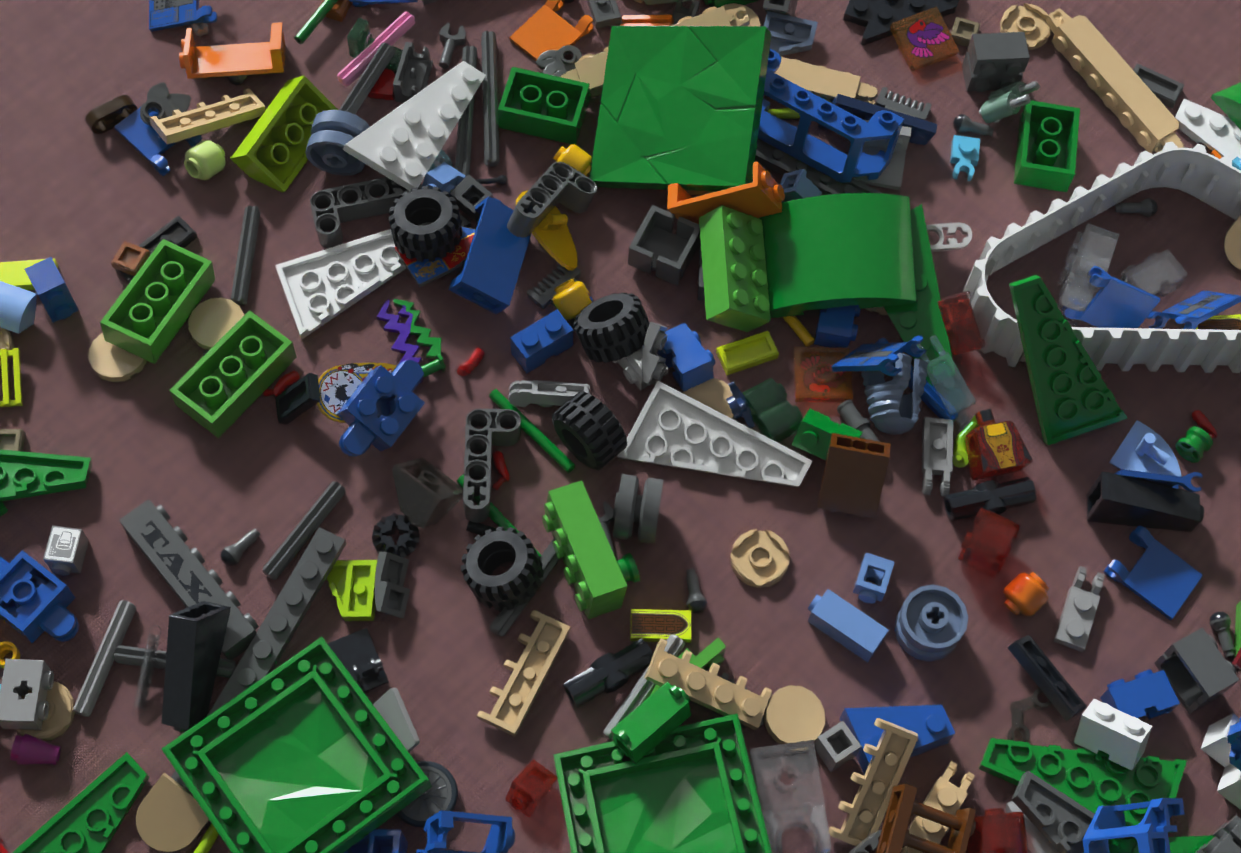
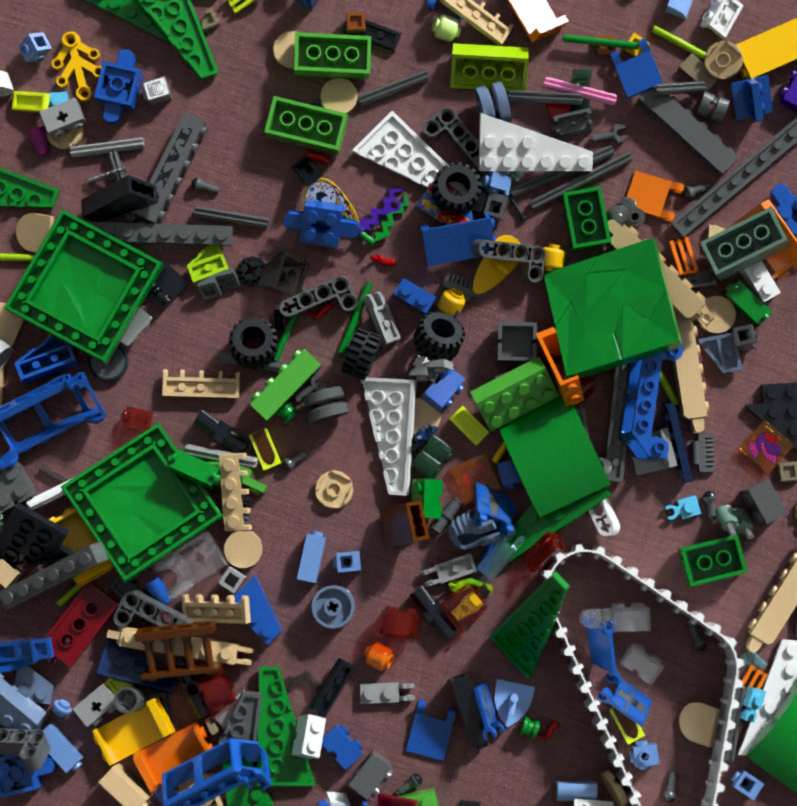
camera: 75 degrees right, 20 degrees up
(798, 186) = (597, 410): medium blue brick -> none

